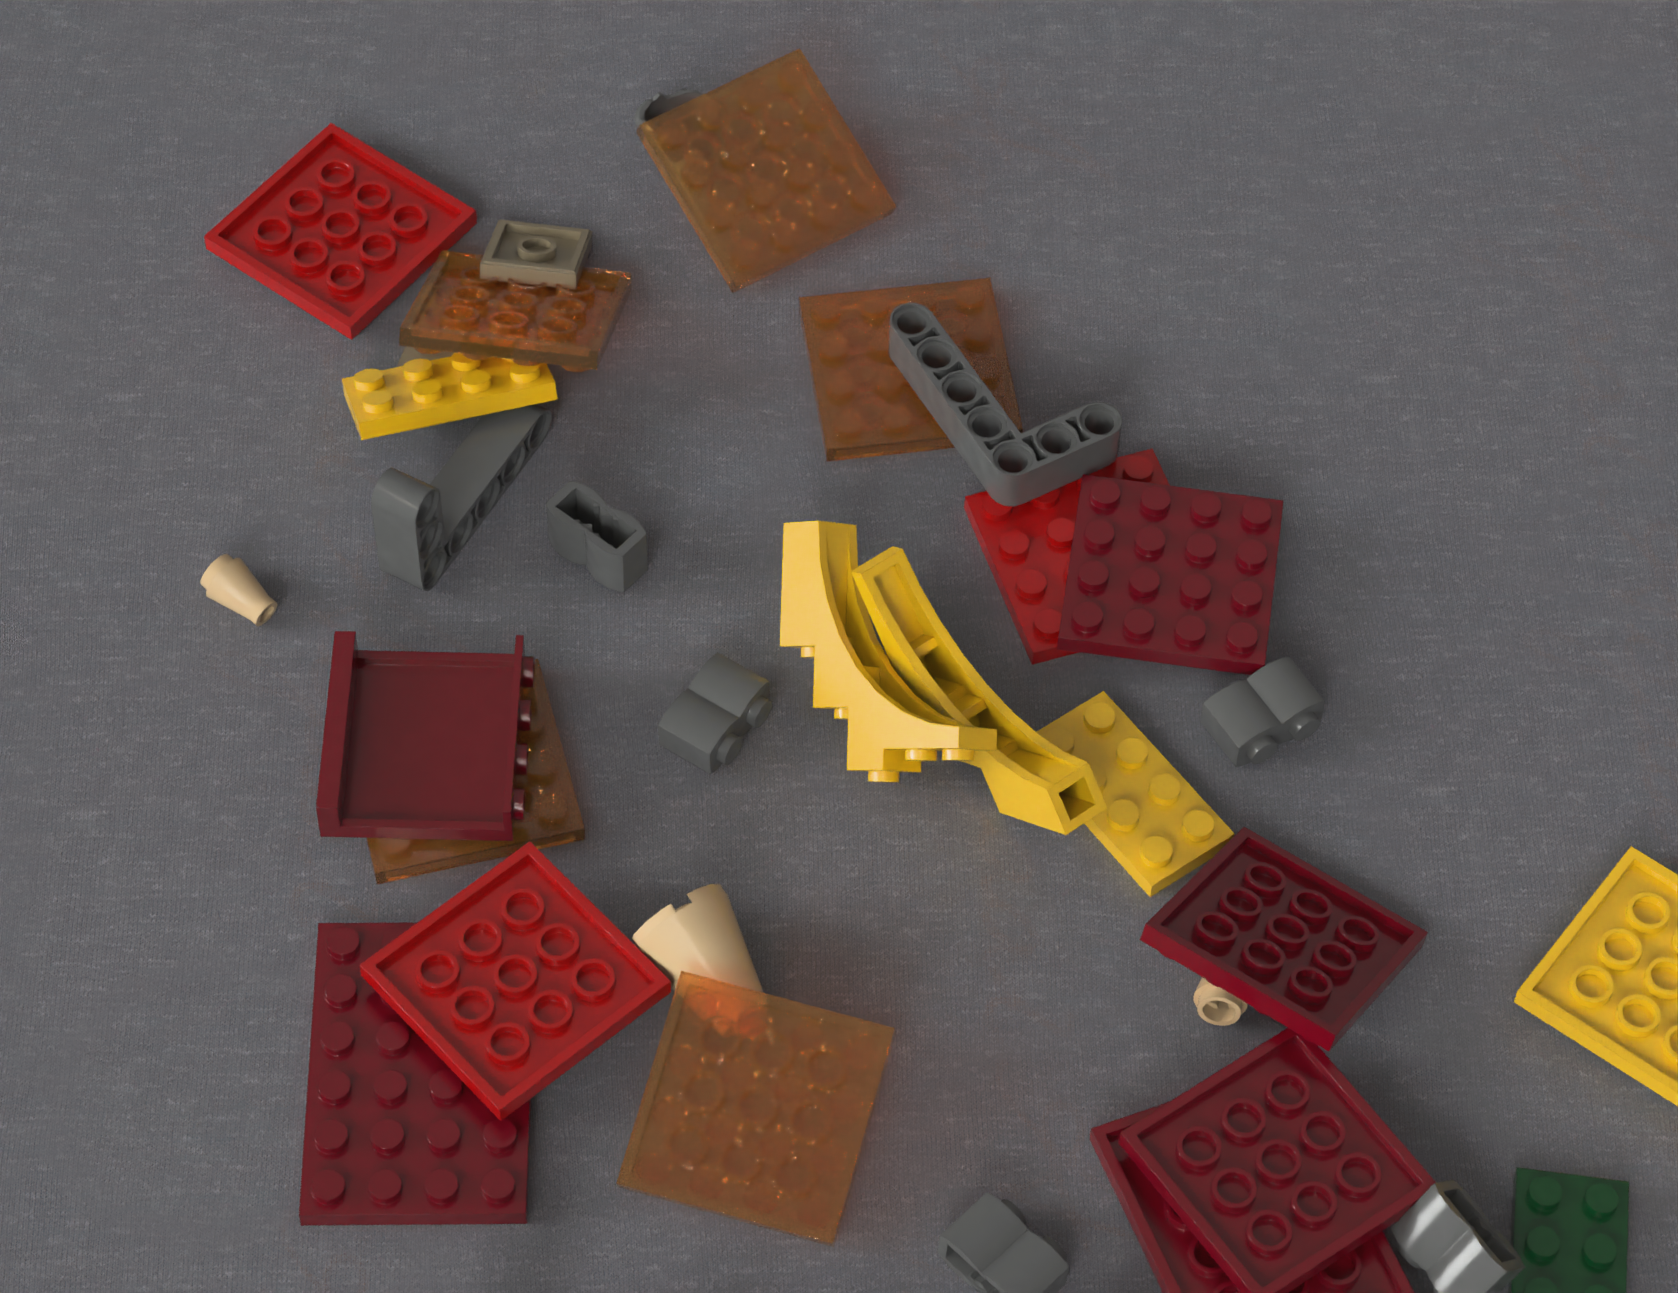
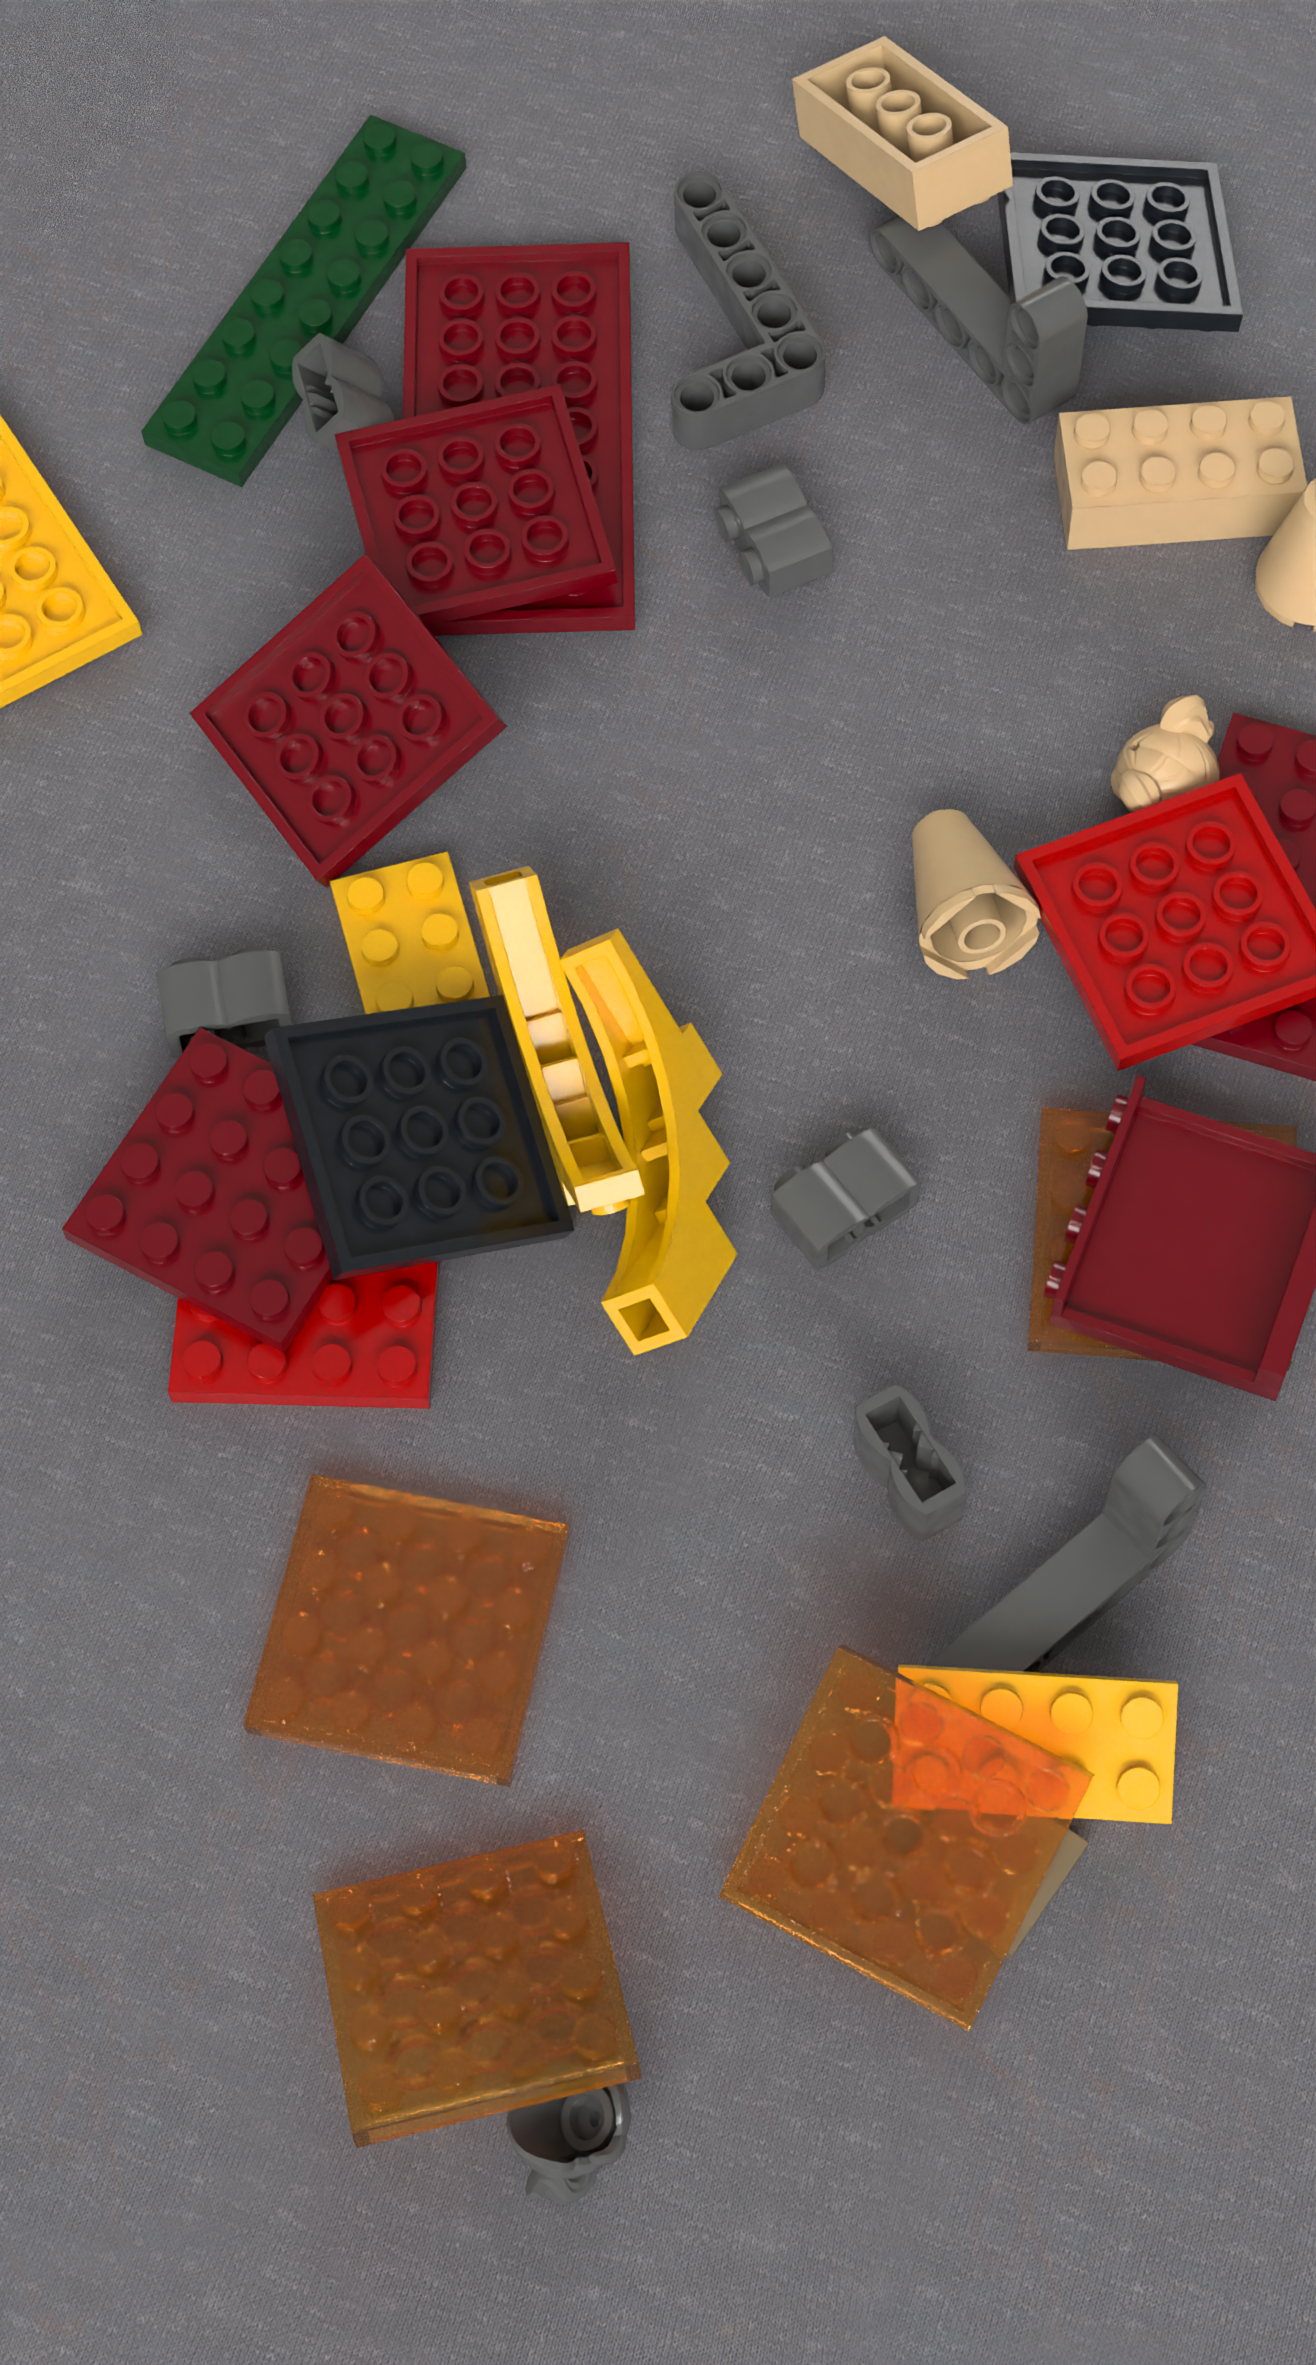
camera: 155 degrees left, 10 degrees up
(340, 230) = (1102, 2126): red plate -> none
(536, 254) = (840, 1968): dark tan tile -> none
(571, 1126) = (1167, 756): none -> tan hair
(756, 1108) = (967, 717): clear orange plate -> none
(1005, 461) = (368, 1458): dark grey beam -> none
(1059, 616) = (417, 1135): none -> black plate

